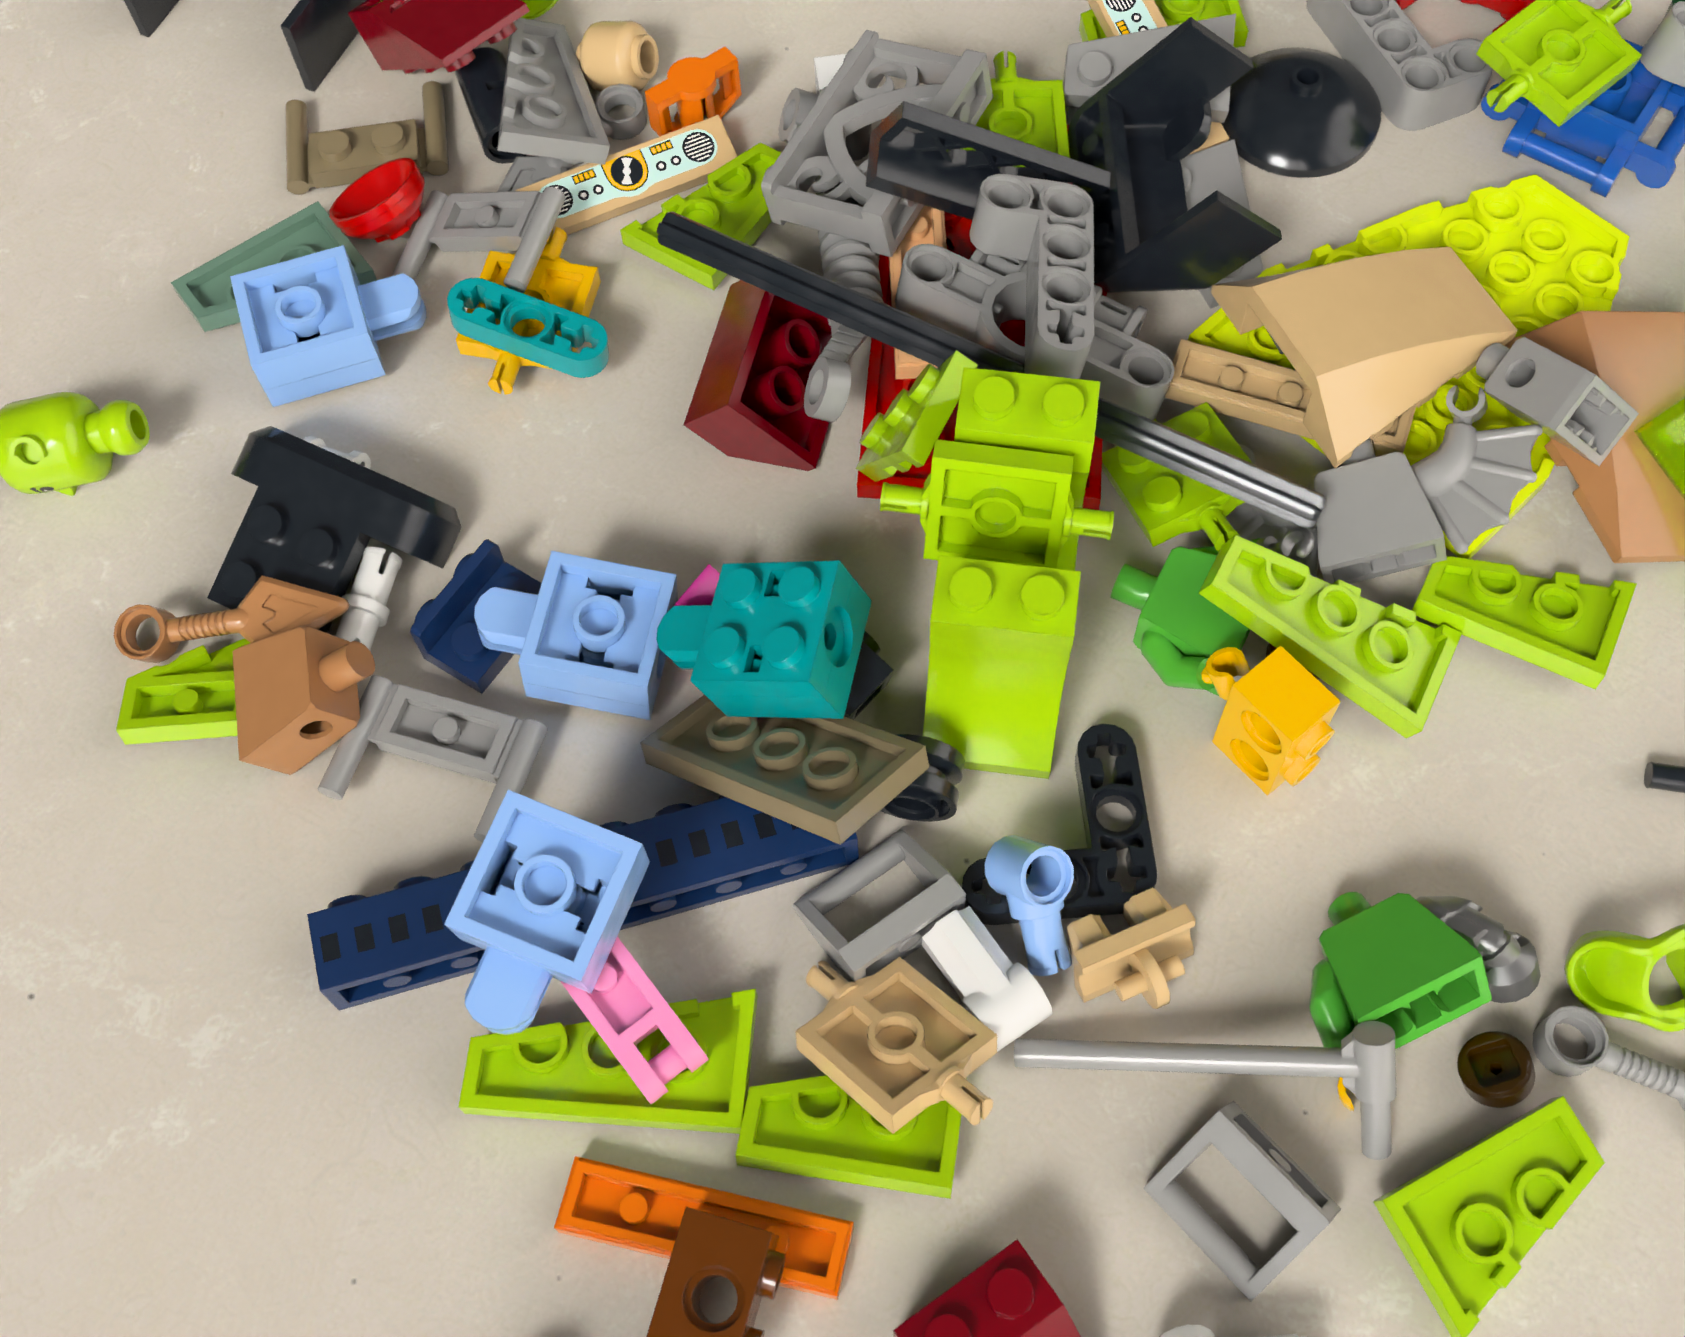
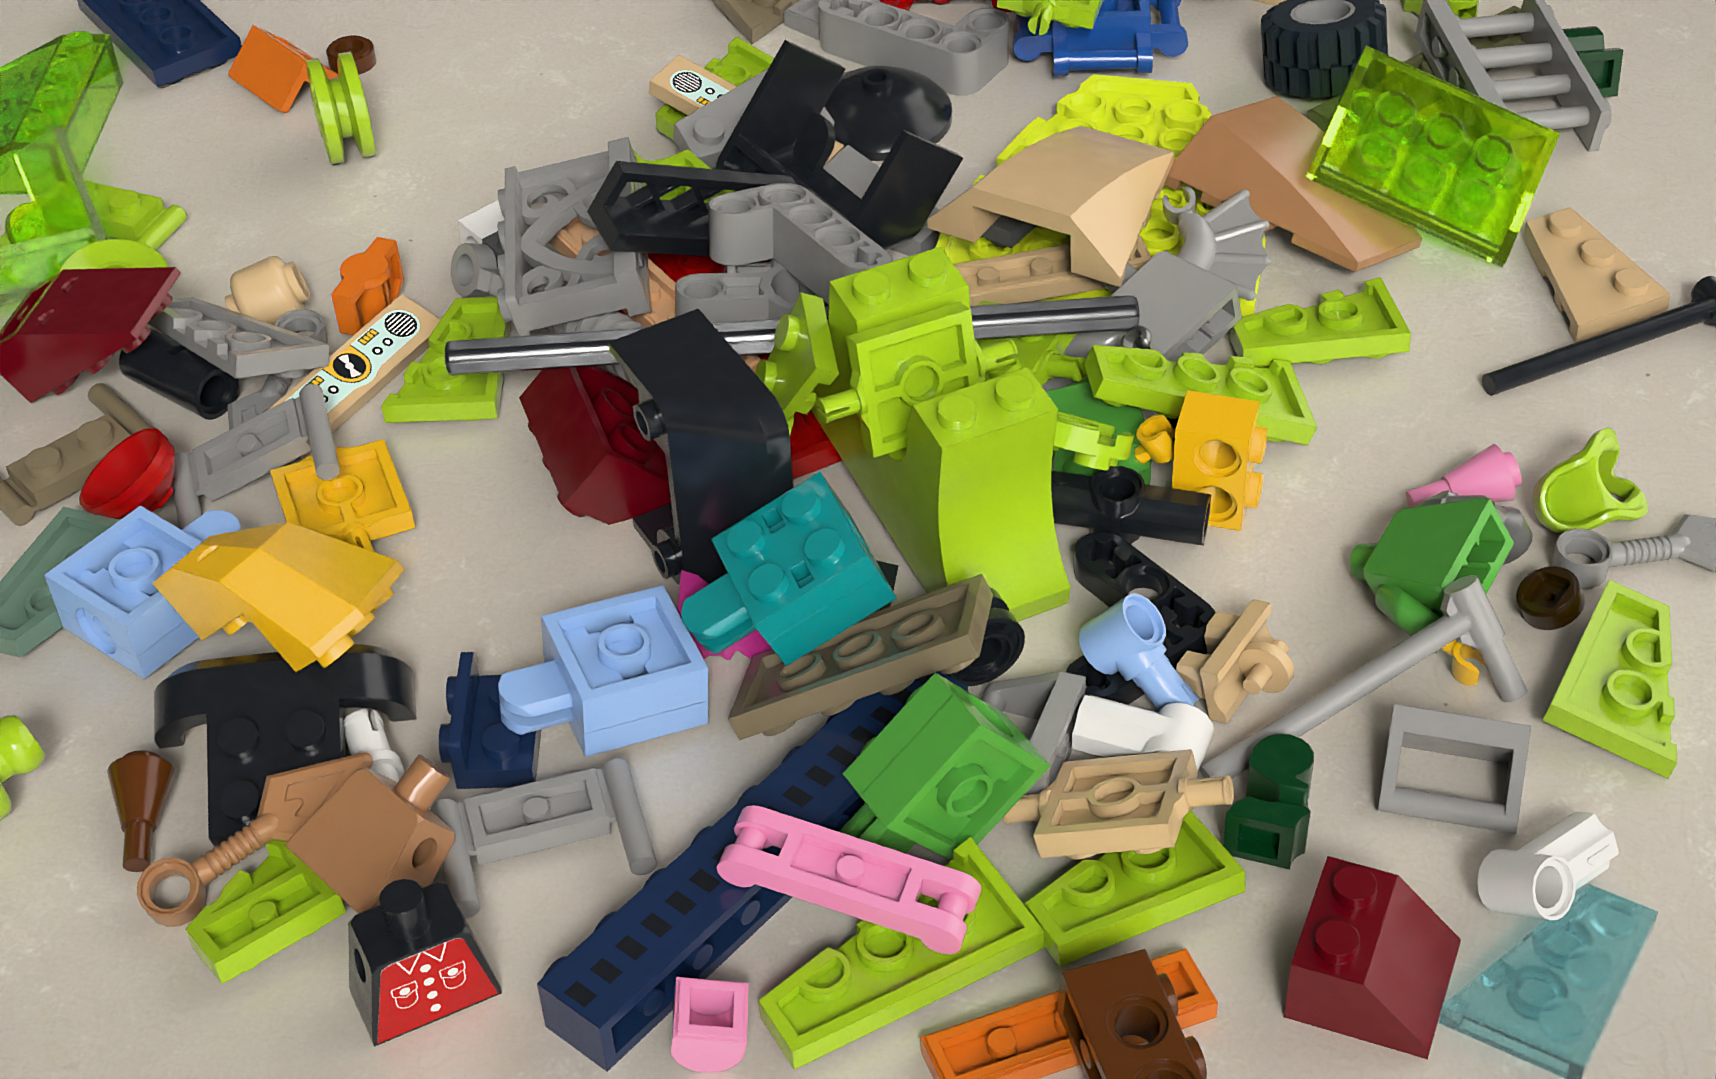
camera: 35 degrees left, 20 degrees down
(187, 525) = (139, 789): none -> reddish brown cone
(243, 822) = (414, 961): none -> torso
(386, 403) = (286, 580): none -> yellow brick
(423, 1027) = (709, 1023): none -> bright pink brick
(514, 306) = (421, 488): teal beam -> none
(551, 912) = (777, 814): light blue brick -> none
(755, 923) = (941, 772): none -> bright green brick
(771, 442) = (718, 435): none -> black windscreen
(1068, 1104) = (1275, 814): none -> dark green leg
(1137, 628) = (1091, 441): none -> lime plate
(1184, 736) = (1124, 505): none -> black piece
(1537, 887) = (1485, 474): none -> bright pink cone
(1556, 395) = (1236, 160): light grey torso -> none

